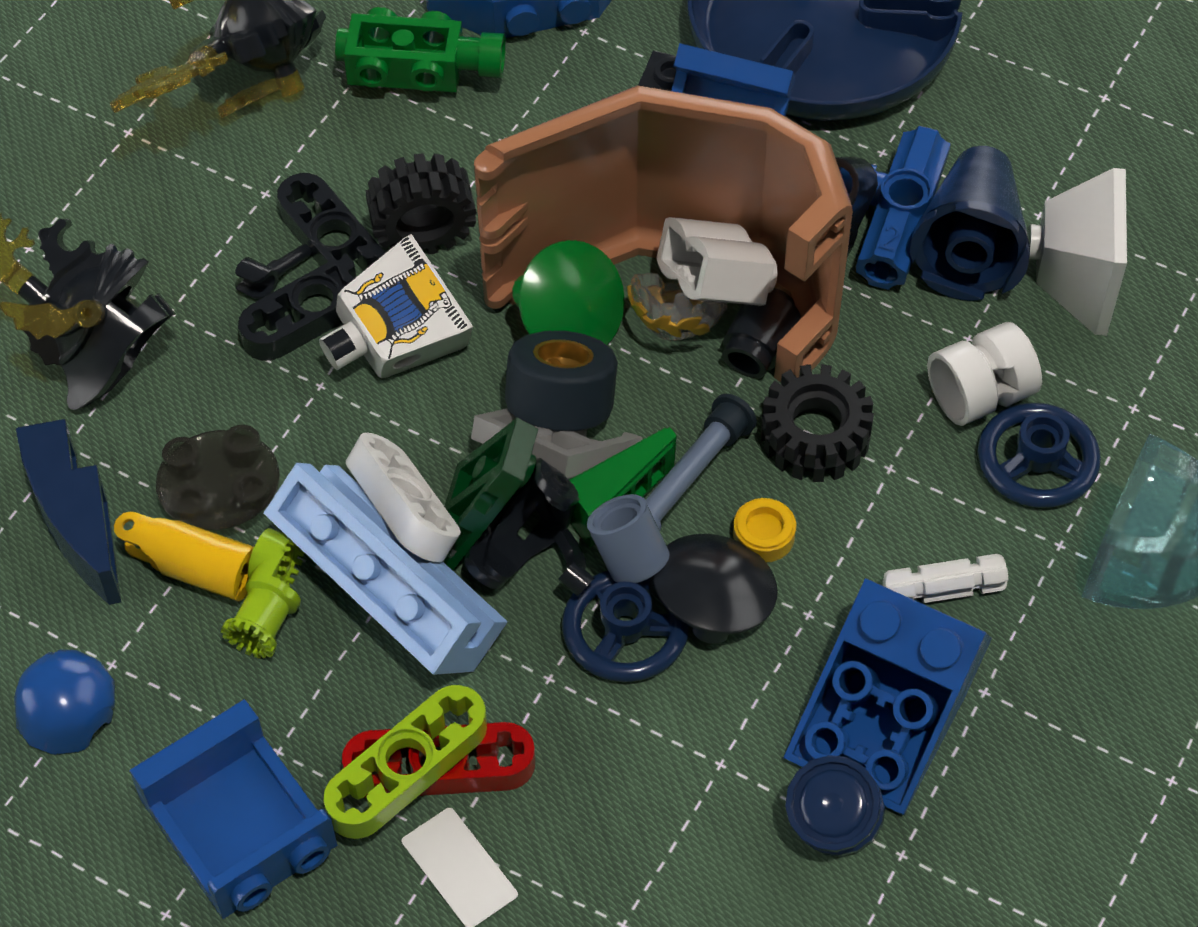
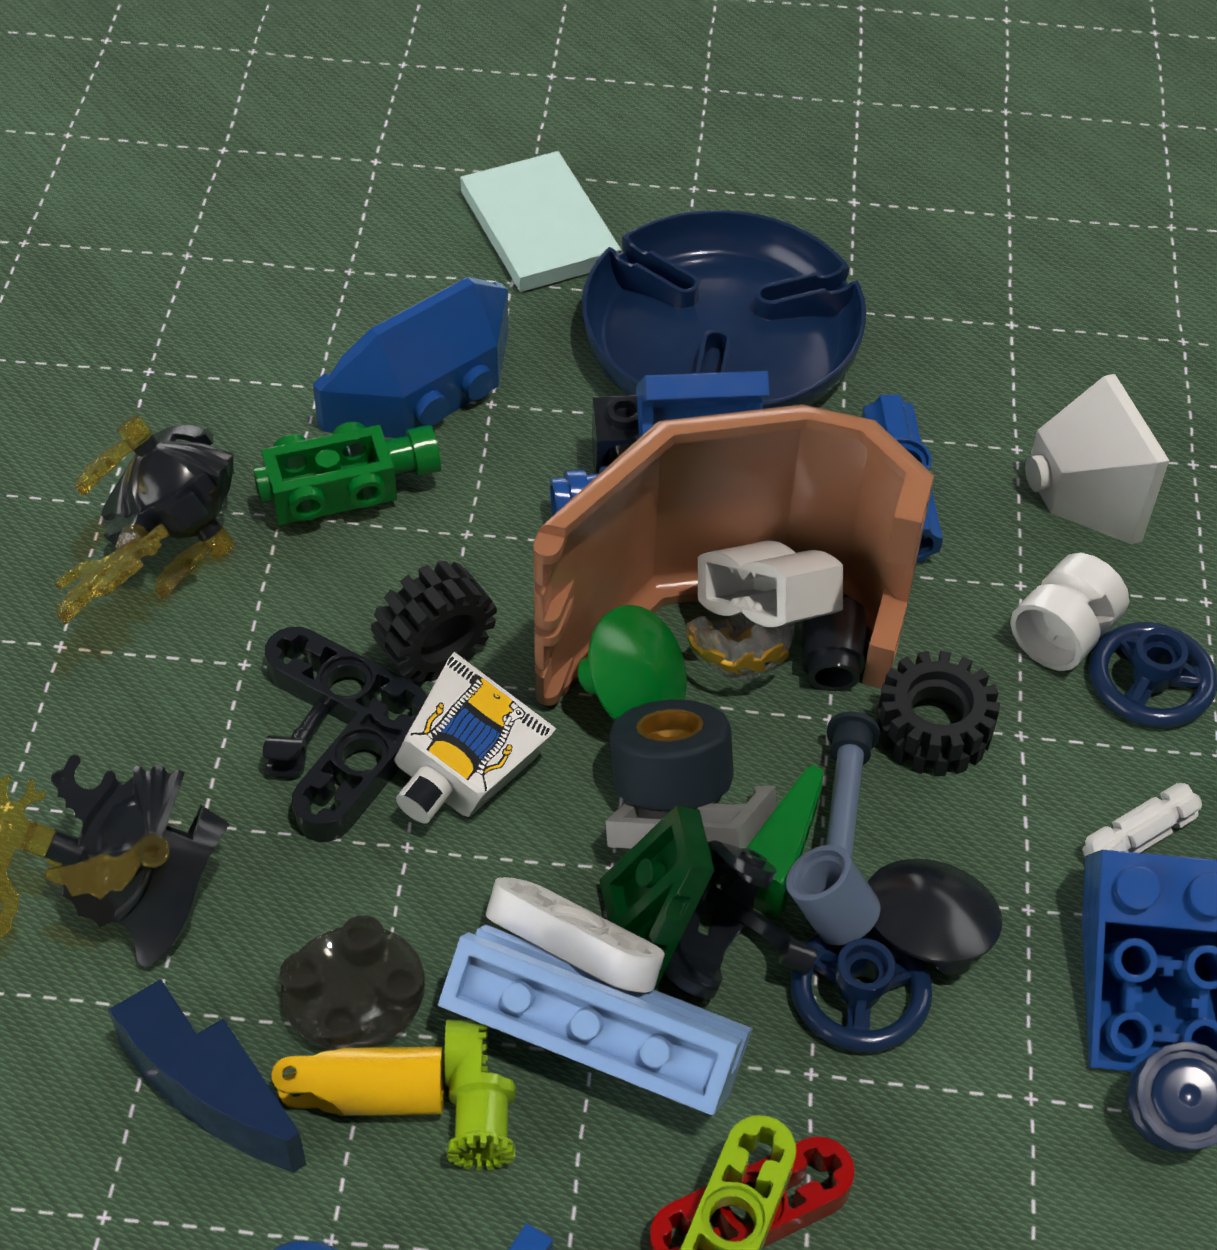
camera: 25 degrees left, 5 degrees down
(765, 528) = (942, 835): yellow tile -> none
(973, 229) = (984, 476): dark blue cone -> none

